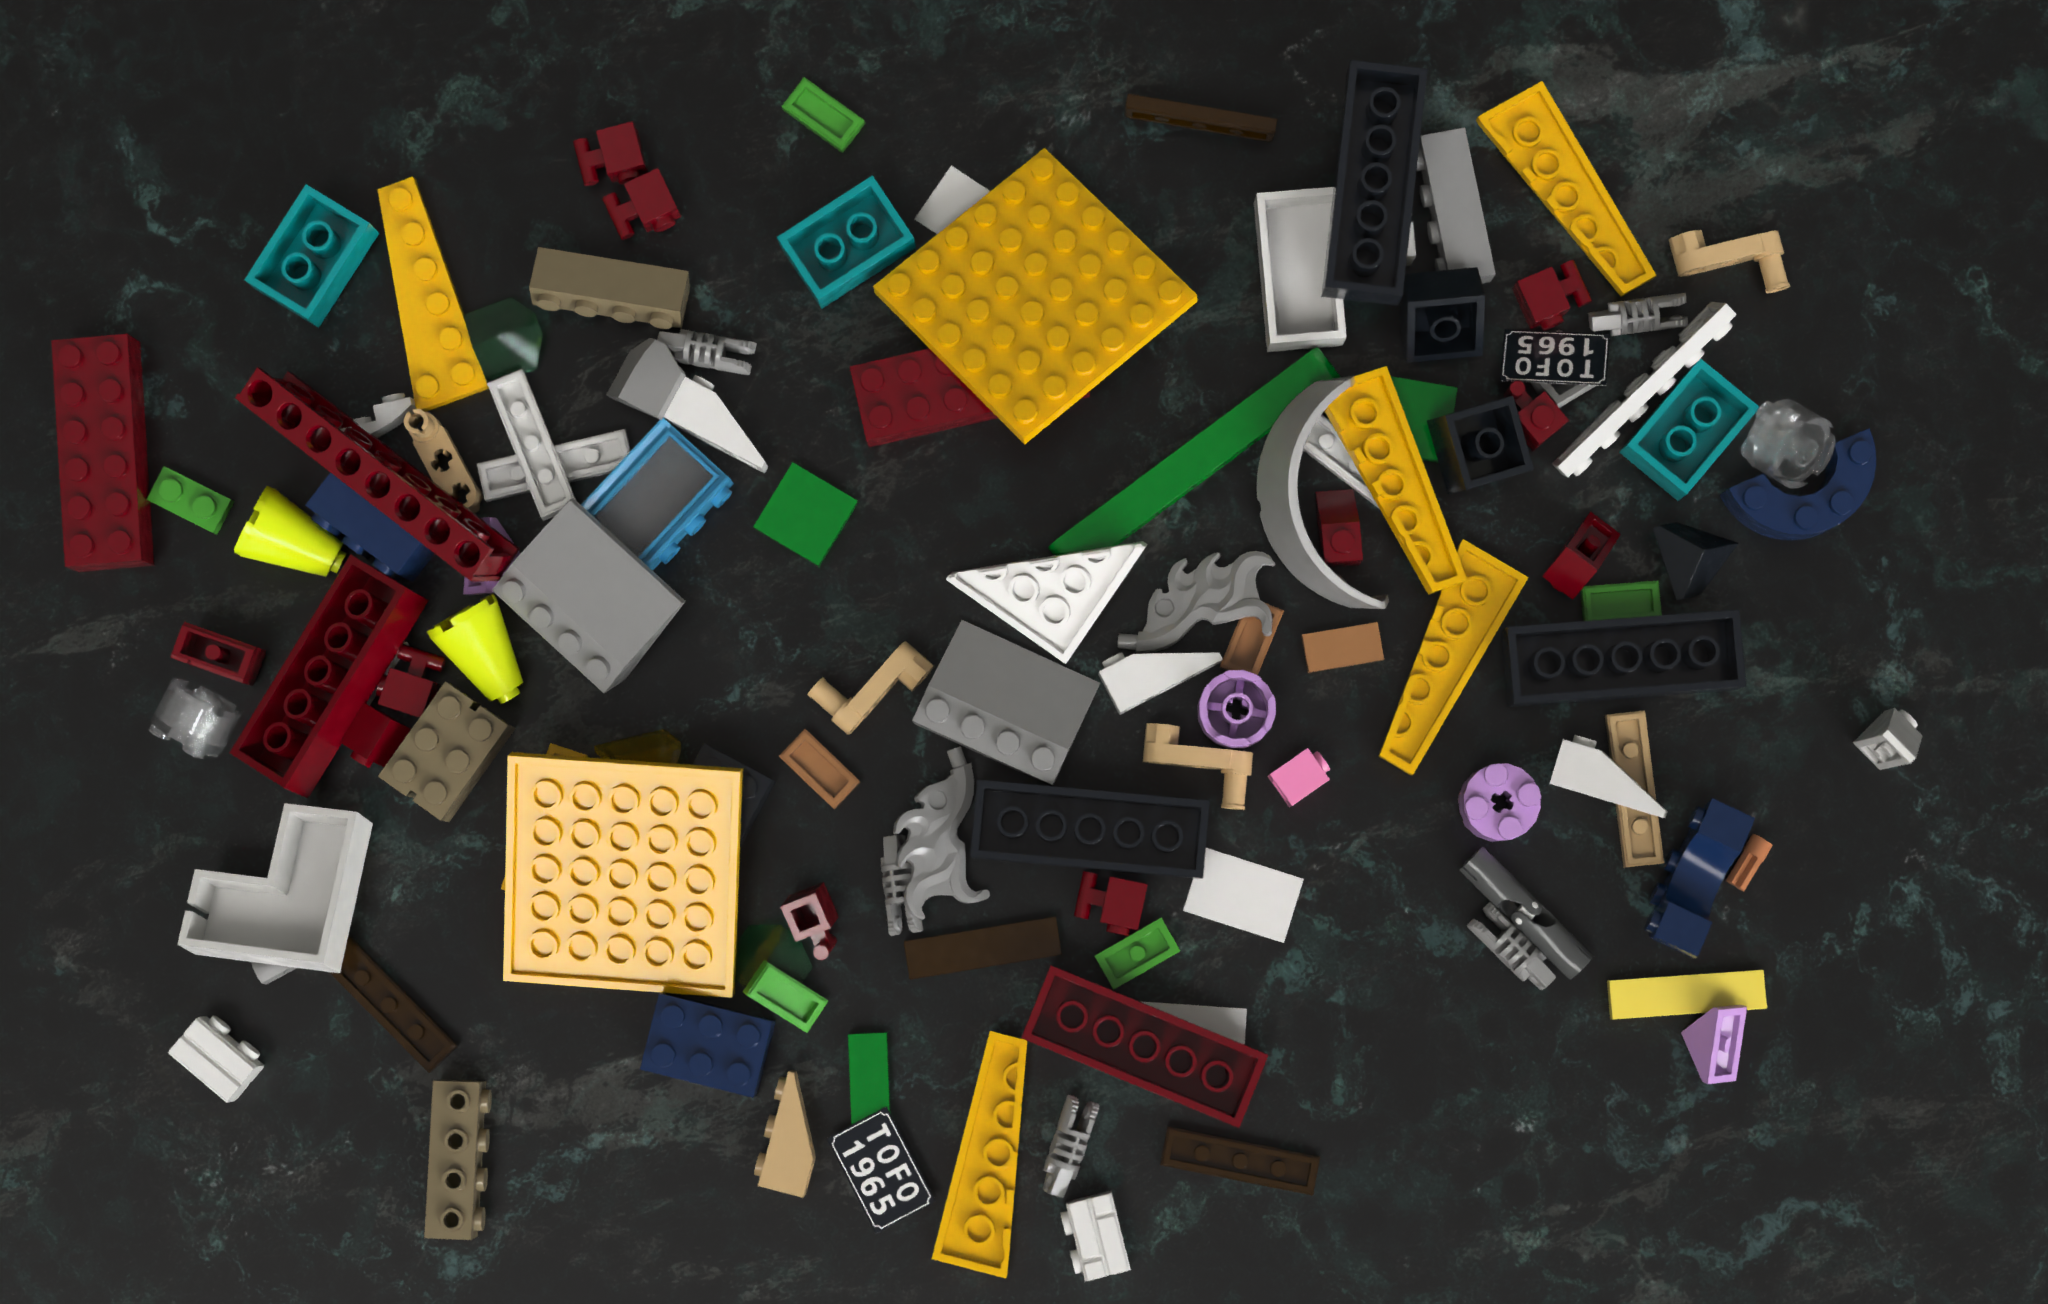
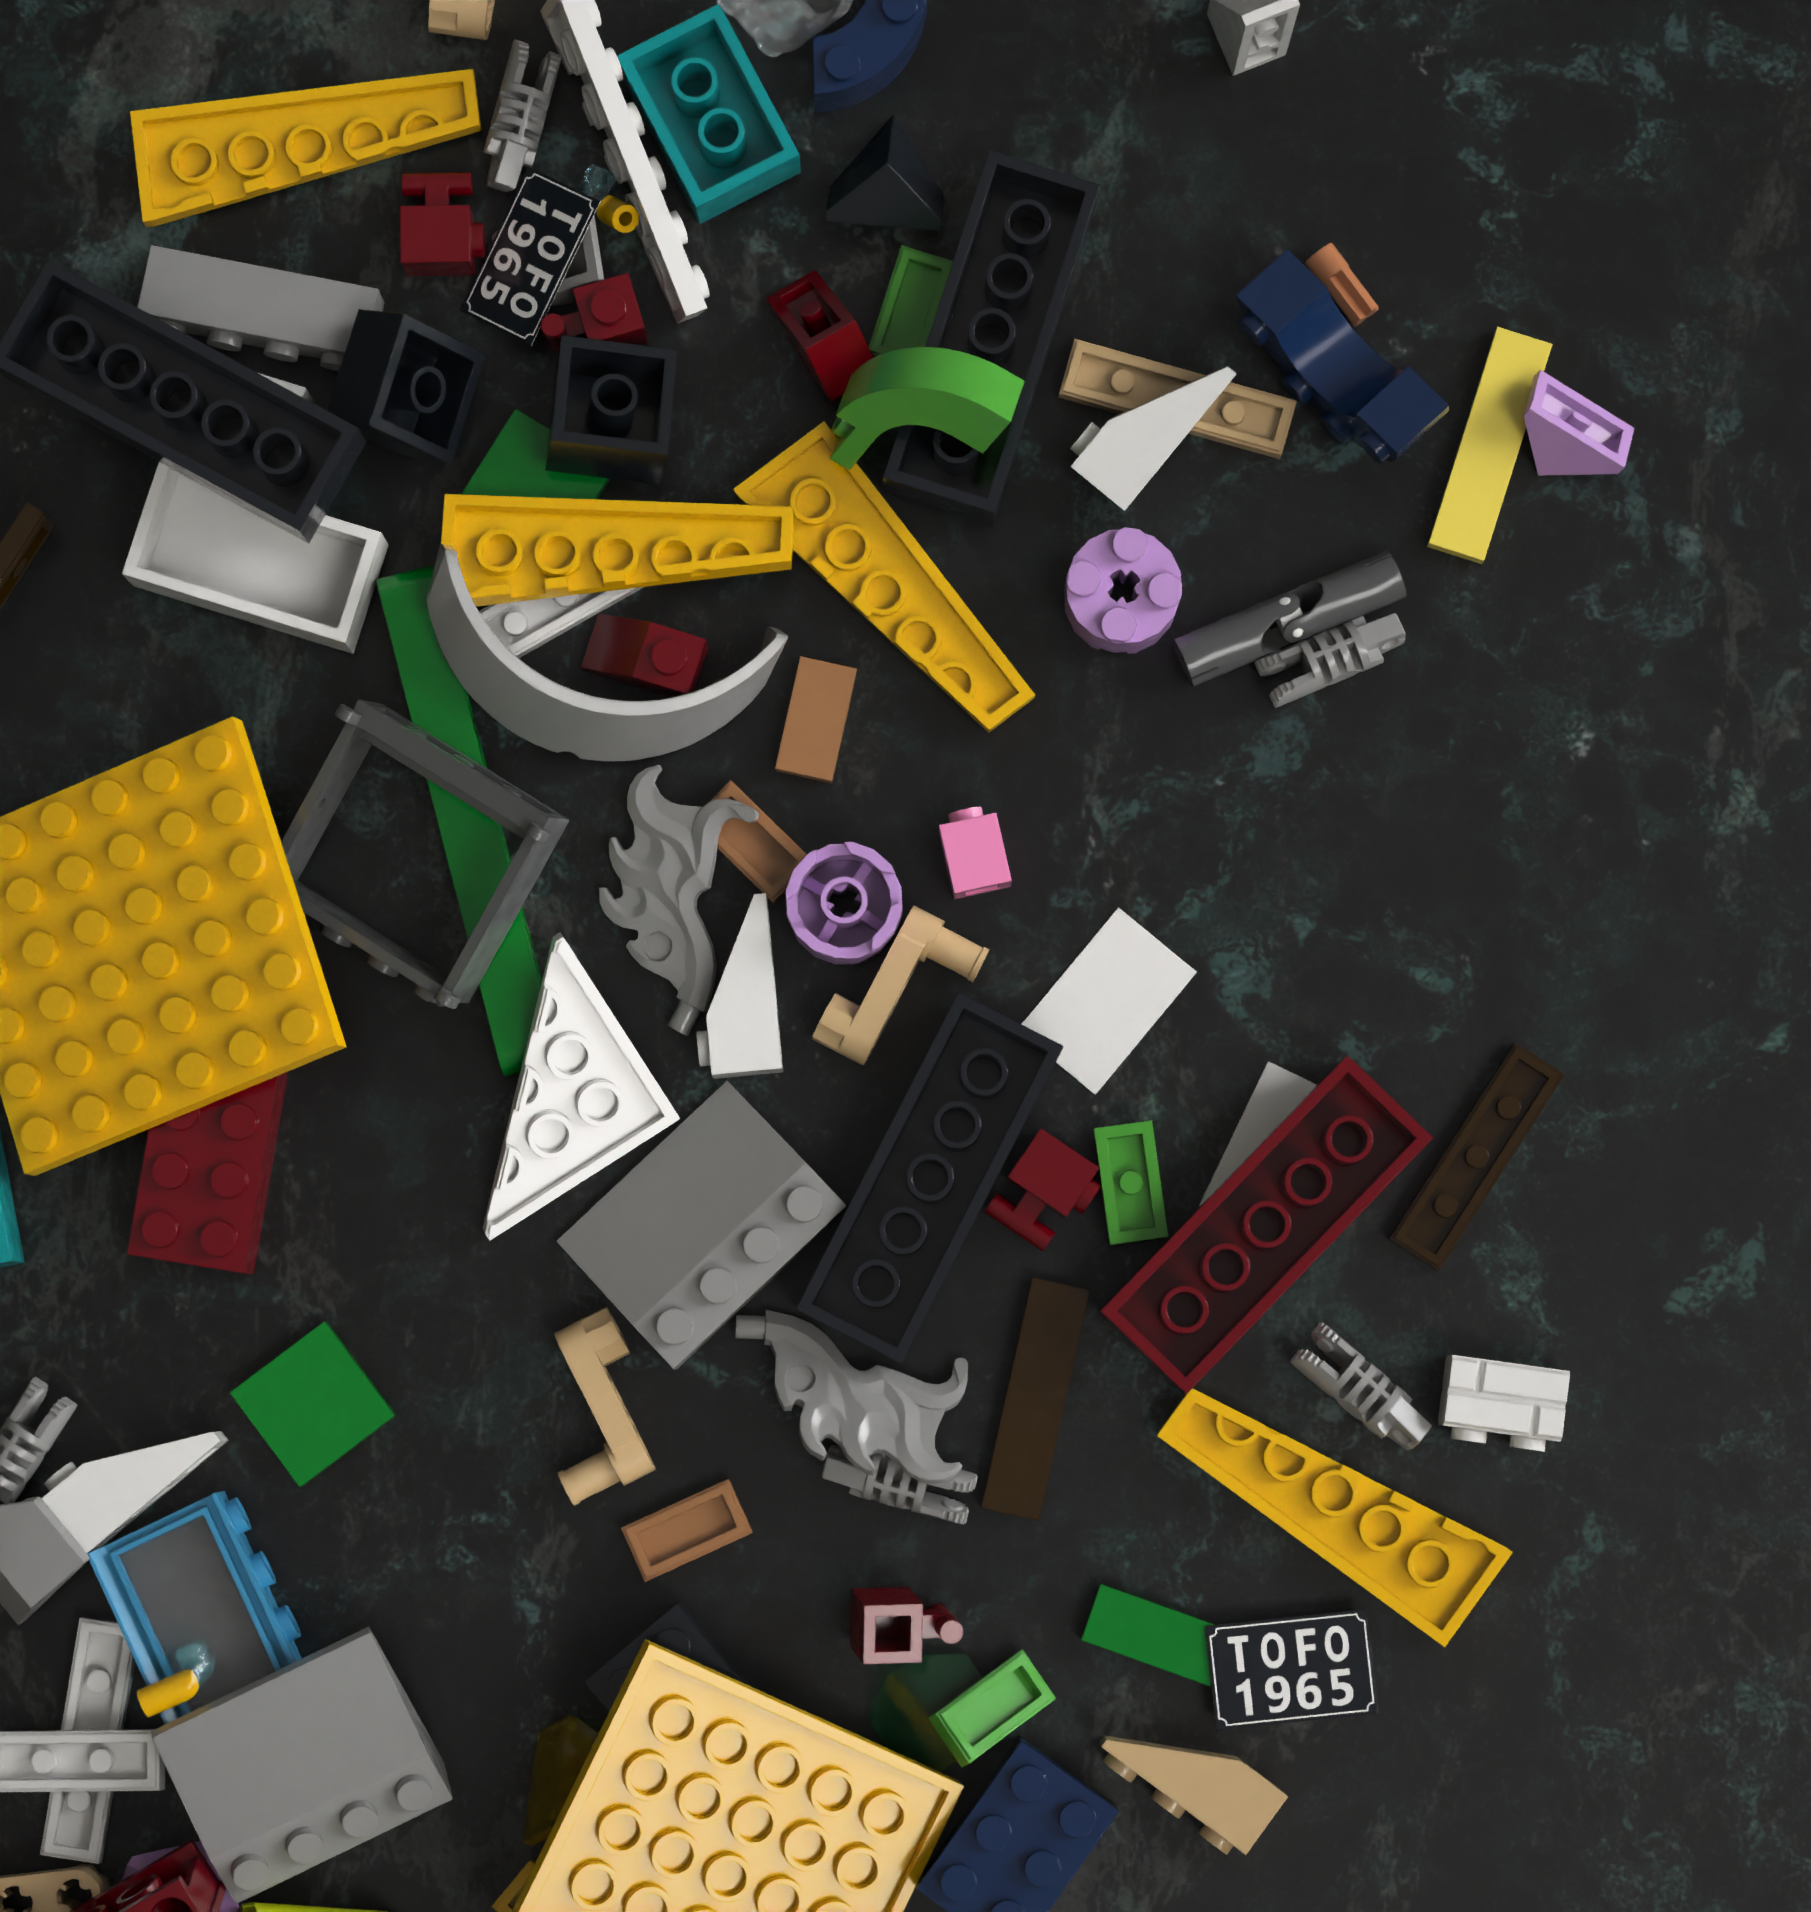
camera: 75 degrees left, 0 degrees up
(607, 505) = (182, 1685): none -> yellow arm
(1216, 449) = (464, 778): none -> dark grey window
(1572, 630) = (927, 389): none -> bright green arch
(1605, 394) = (611, 210): none -> arm

